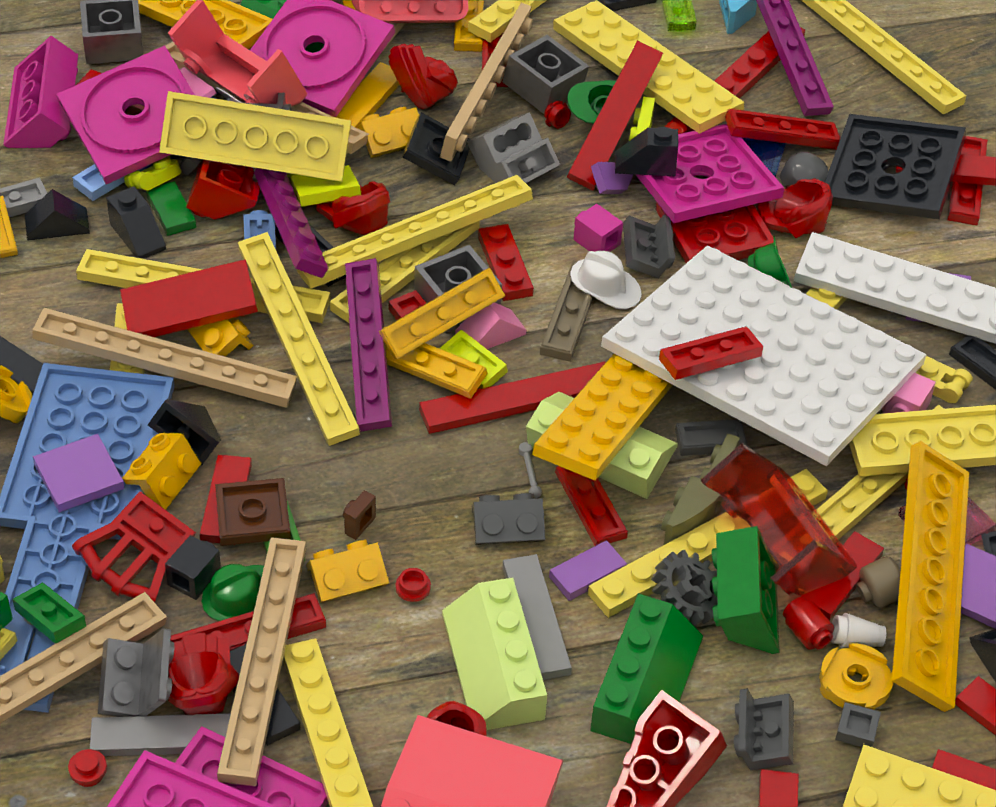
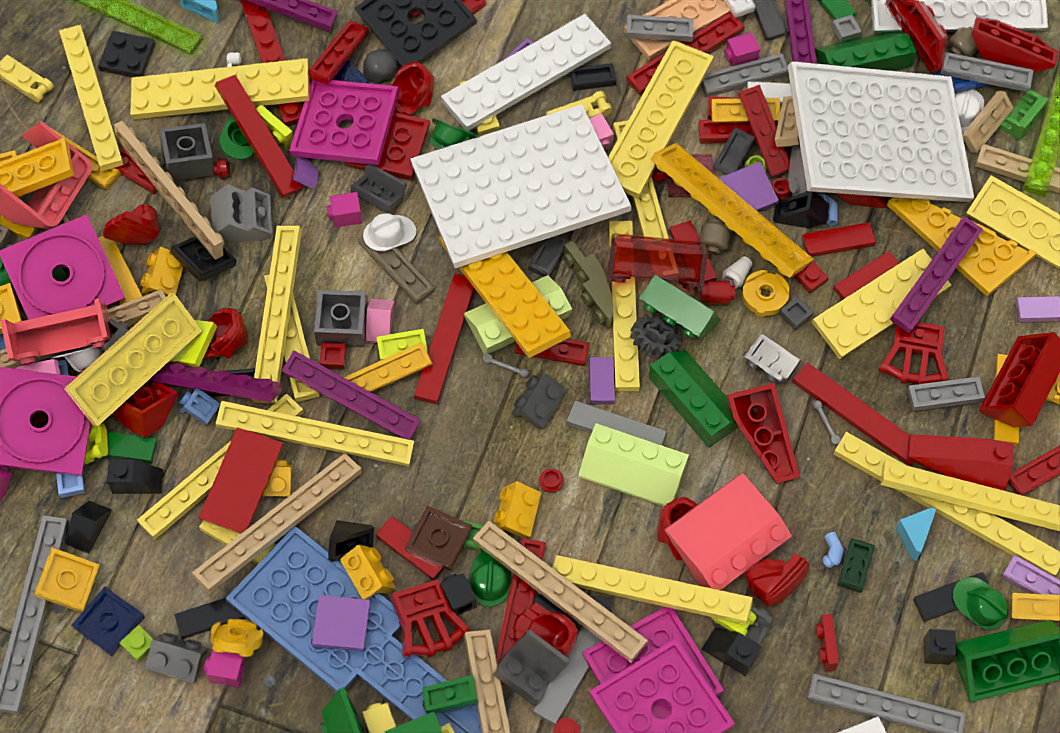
camera: 55 degrees left, 15 degrees up
(359, 514) = (480, 479): reddish brown plate -> none
(441, 313) = (366, 340): yellow tile -> none
(505, 261) = (327, 276): red plate -> none
(649, 153) = (317, 140): black slope -> none
(694, 59) = (233, 59): none -> white hand
(710, 352) = (517, 214): red plate -> none
(927, 720) = (811, 277): none -> red plate

